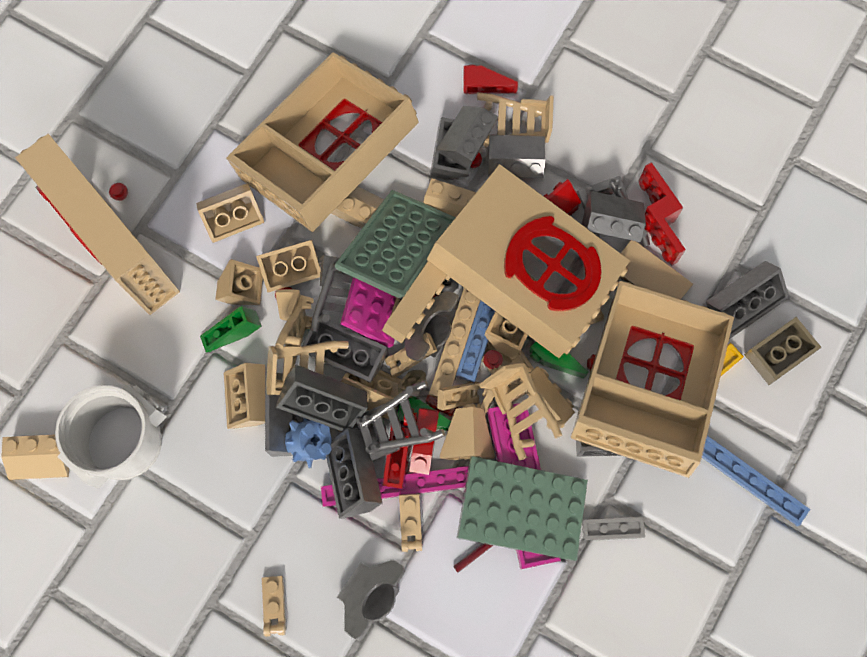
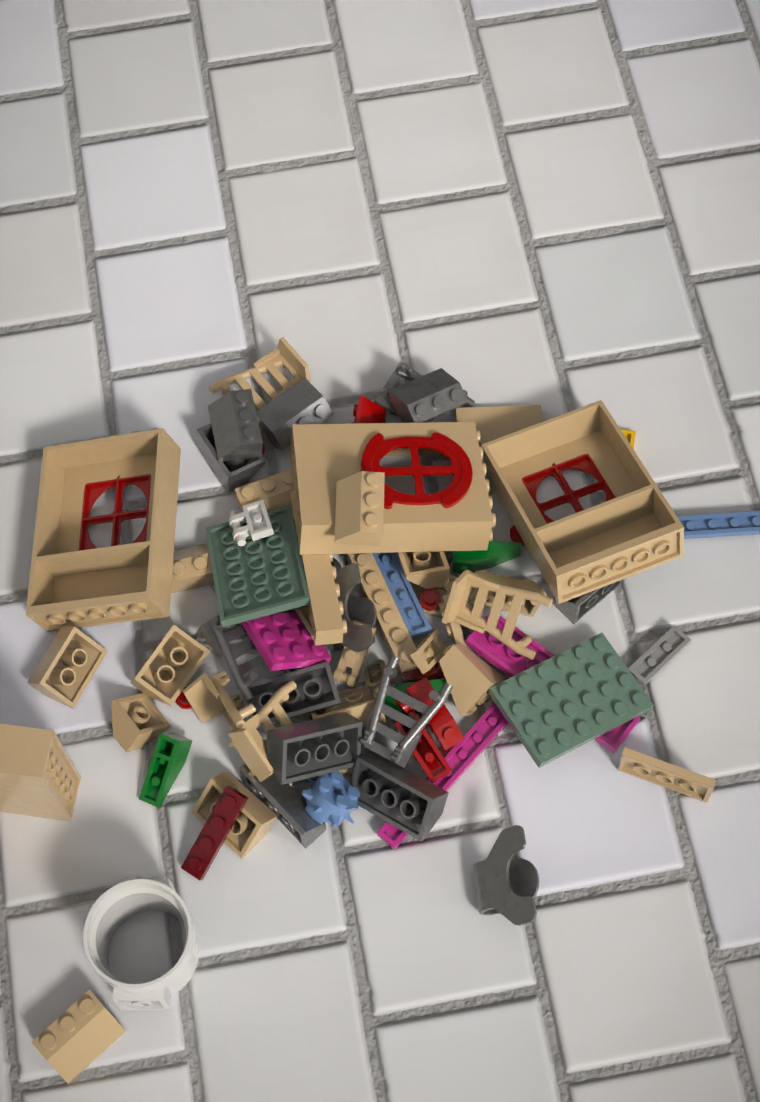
camera: 40 degrees left, 10 degrees down
(220, 399) = (214, 832): none -> dark red plate
(273, 605) = (428, 972): tan plate -> none
(410, 521) = (484, 795): tan plate -> none
(424, 213) = (257, 519): none -> white plate
(471, 557) = (563, 778): dark red bar -> none
(483, 80) = (202, 373): red slope -> none
(483, 263) = (360, 509): none -> tan slope
(539, 617) = (666, 775): none -> tan tile
(661, 213) = (462, 364): red bracket -> none
(751, 296) = (597, 374): flat silver slope -> none
(782, 350) = (662, 401): dark tan brick -> none

